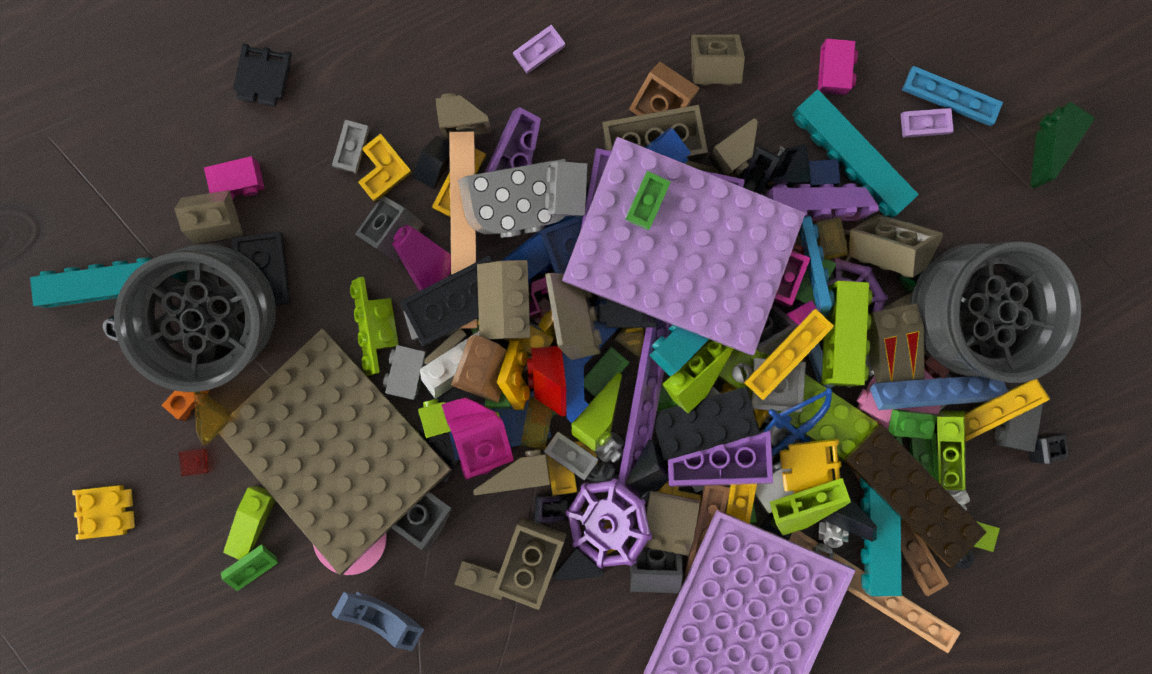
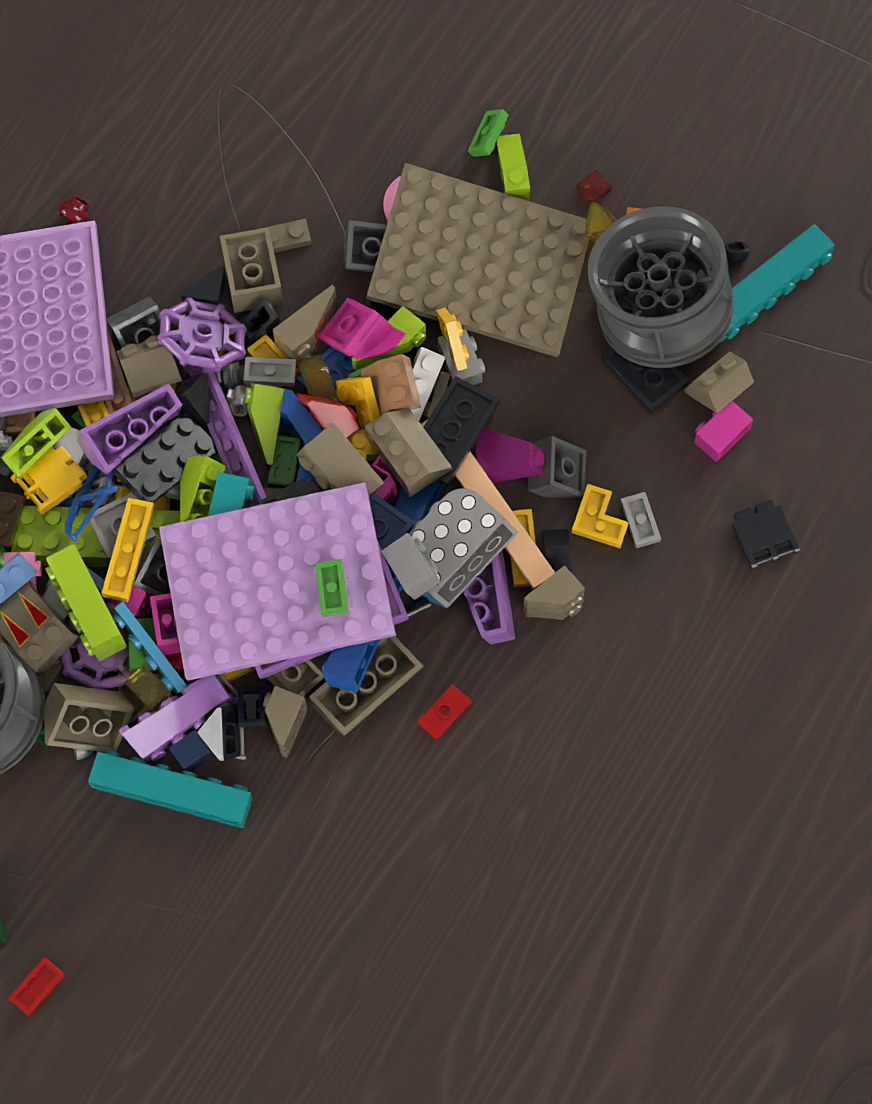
camera: 150 degrees right, 15 degrees down
(103, 511) = (641, 107): yellow plate -> none
(375, 324) = (514, 384): lime bracket -> none
(380, 617) = (350, 158): sand blue arch -> none
(400, 384) = (451, 330): none -> yellow plate
(539, 49) = (528, 709): lavender plate -> none
(604, 88) = (444, 712): none -> red plate
(663, 91) = (383, 736): medium nougat slope -> none
(717, 59) = (355, 801): dark tan slope -> none
(736, 372) = (155, 523): light grey hinge -> none
(836, 67) = (235, 861): dark pink brick -> none
(927, 122) = (117, 862): lavender plate -> none
(952, 95) = (107, 903): dark azure plate -> none
(1040, 65) = (36, 986): none -> red plate

